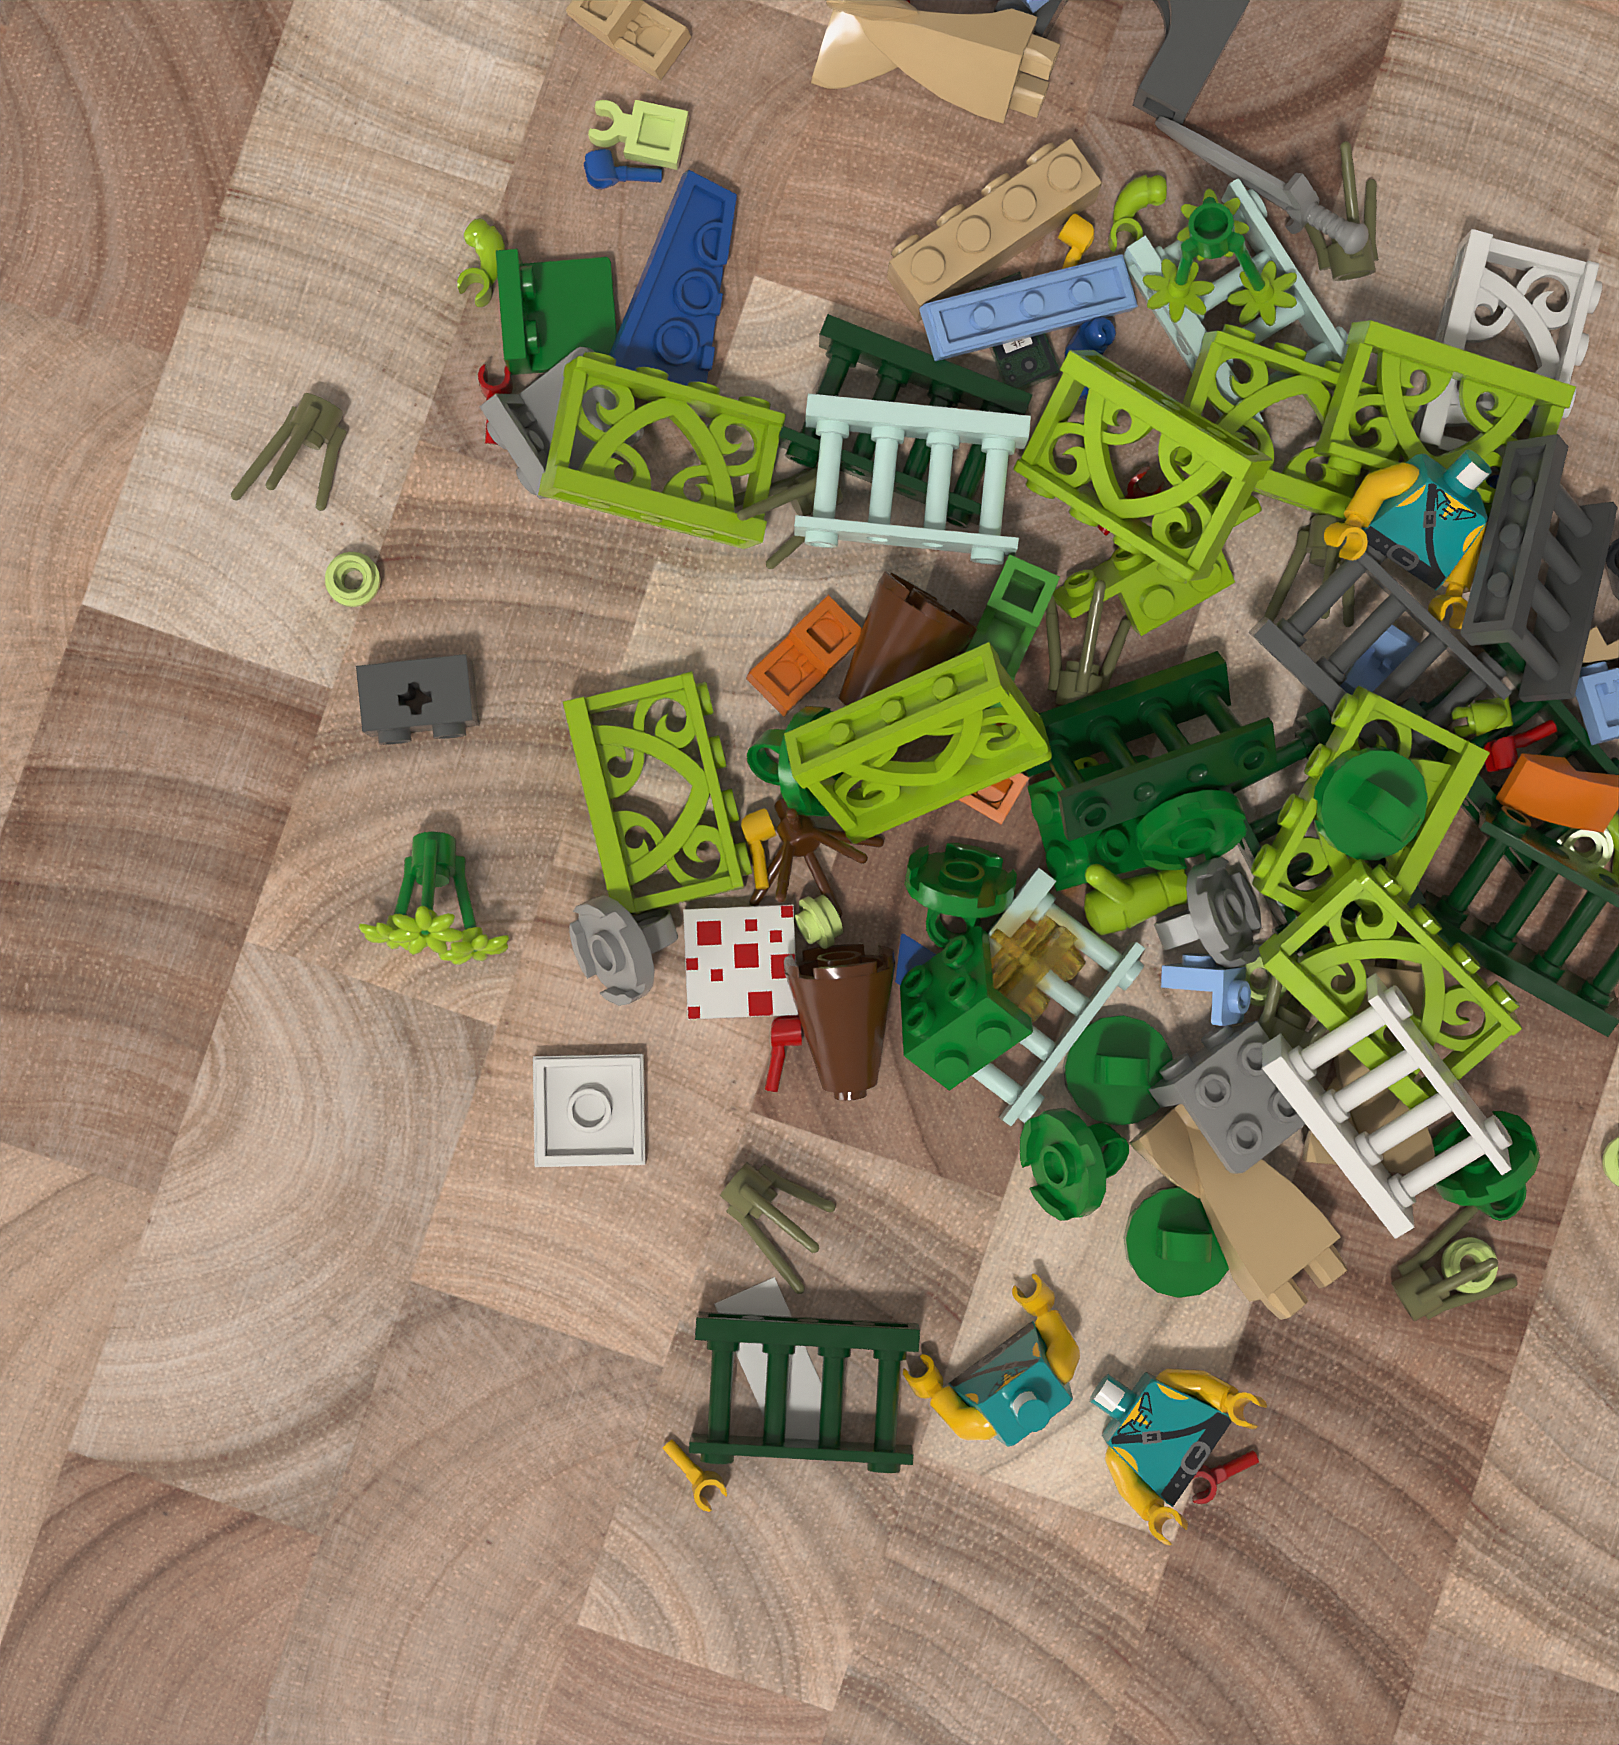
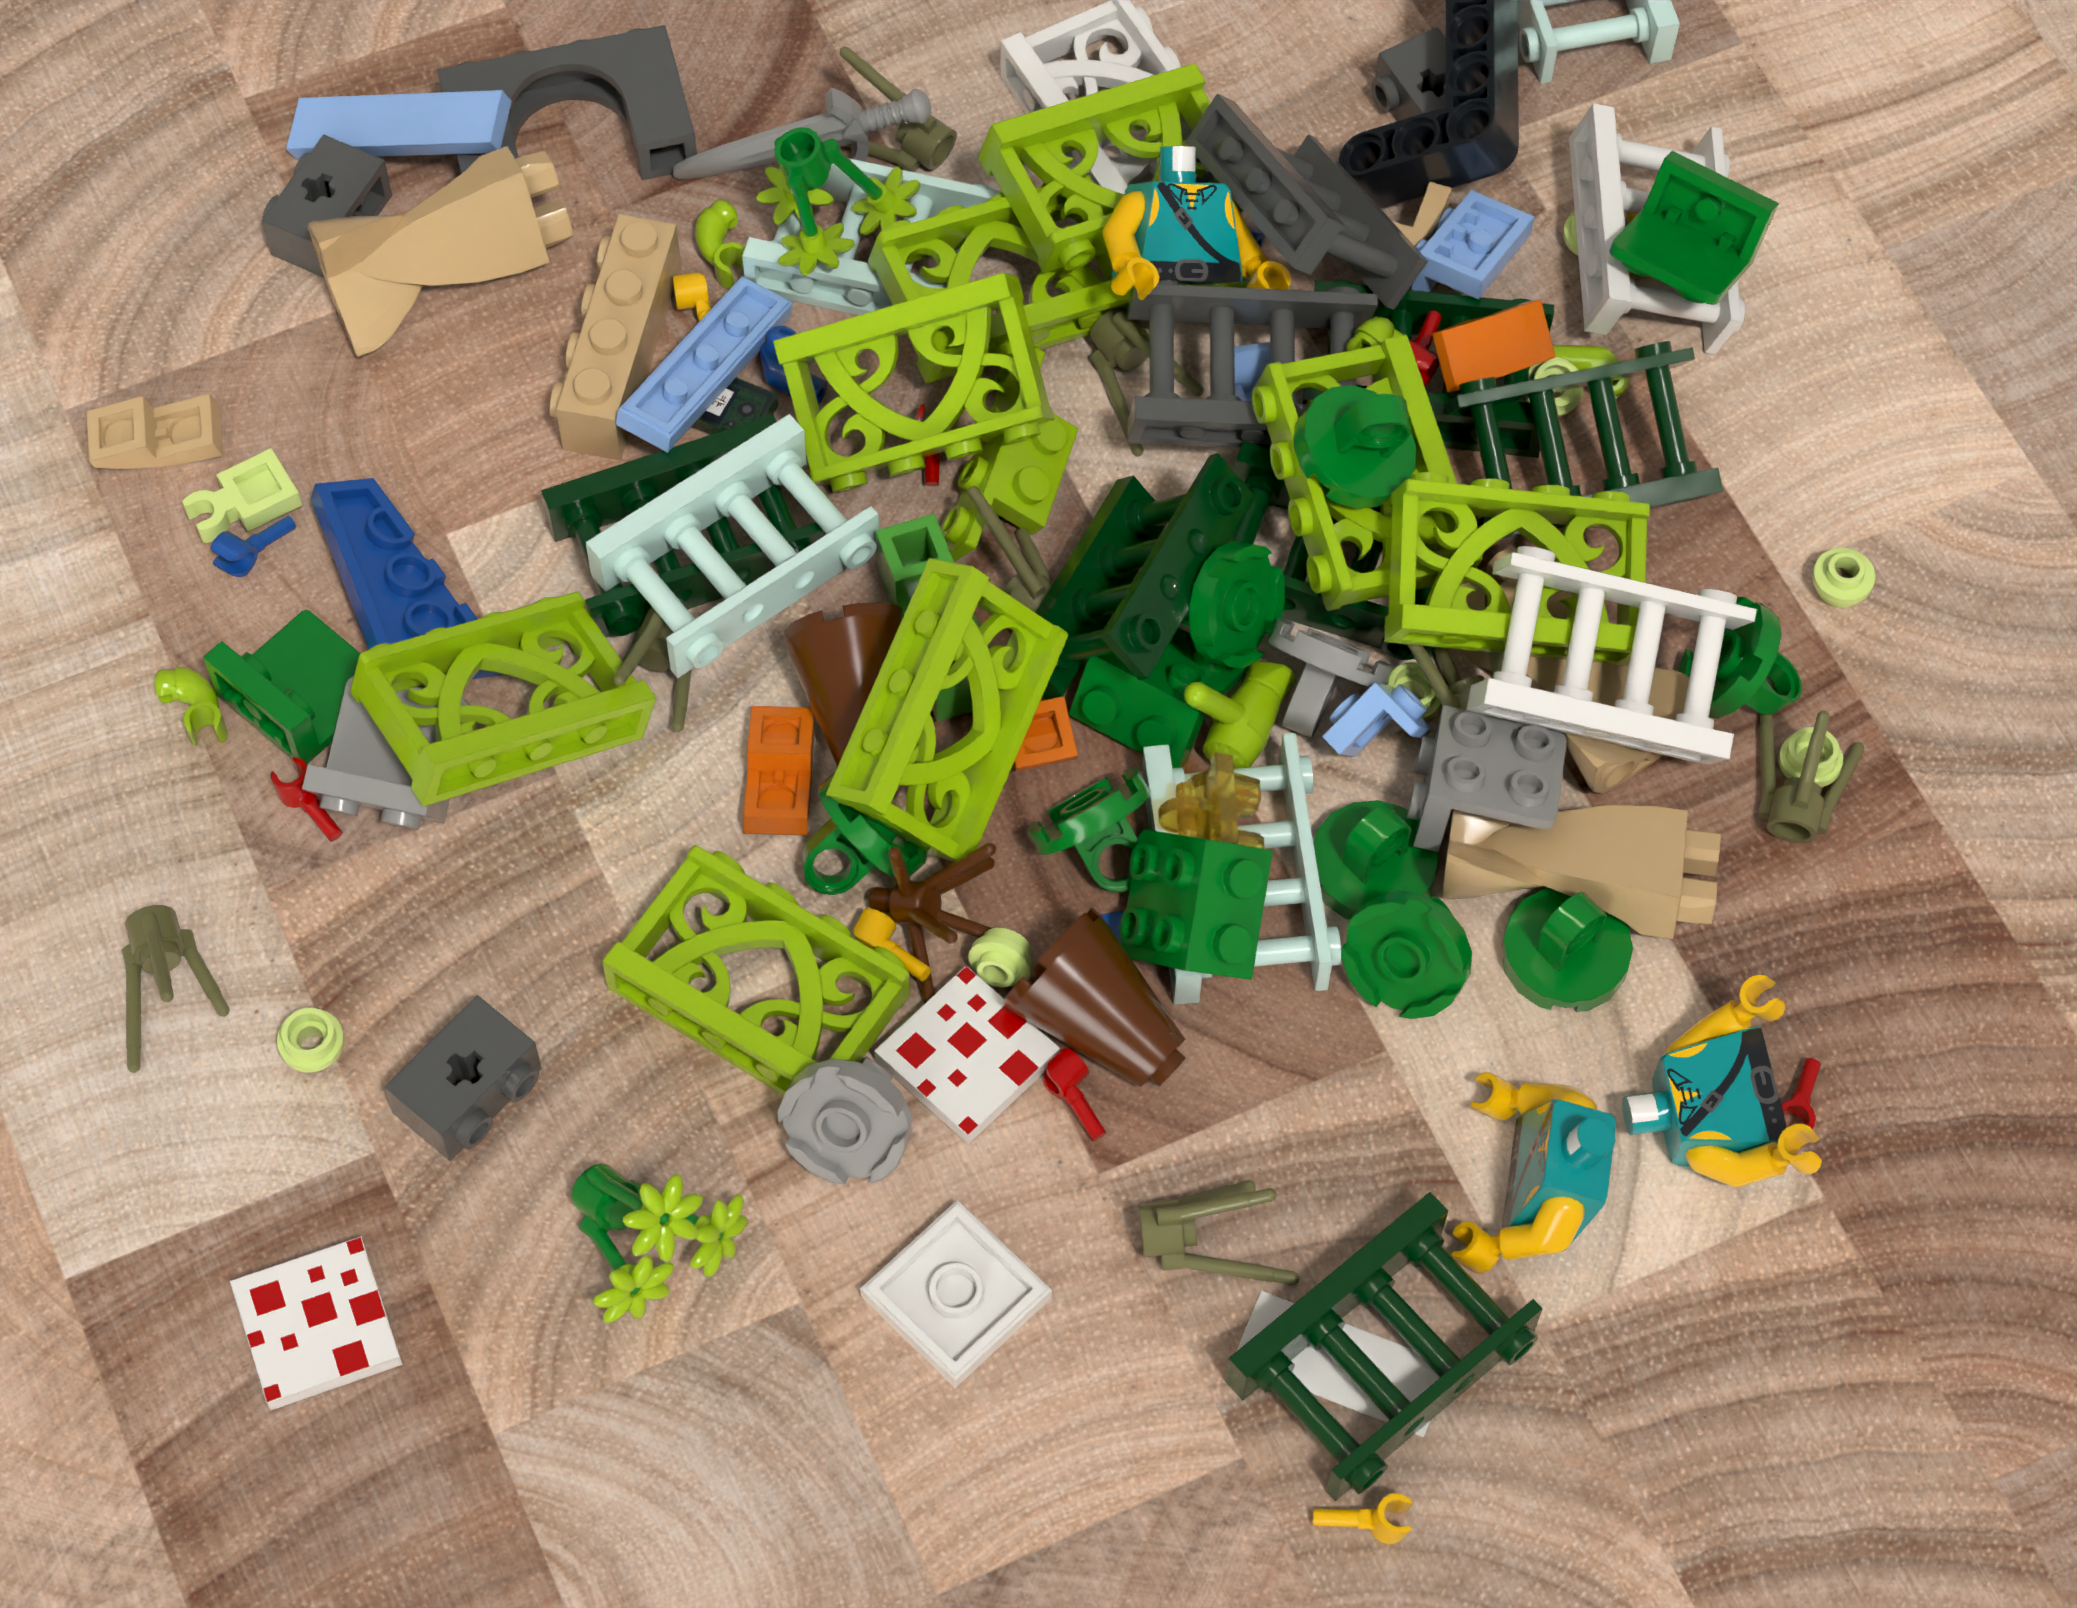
camera: 45 degrees left, 25 degrees down
(198, 775) = (315, 1323): none -> white tile

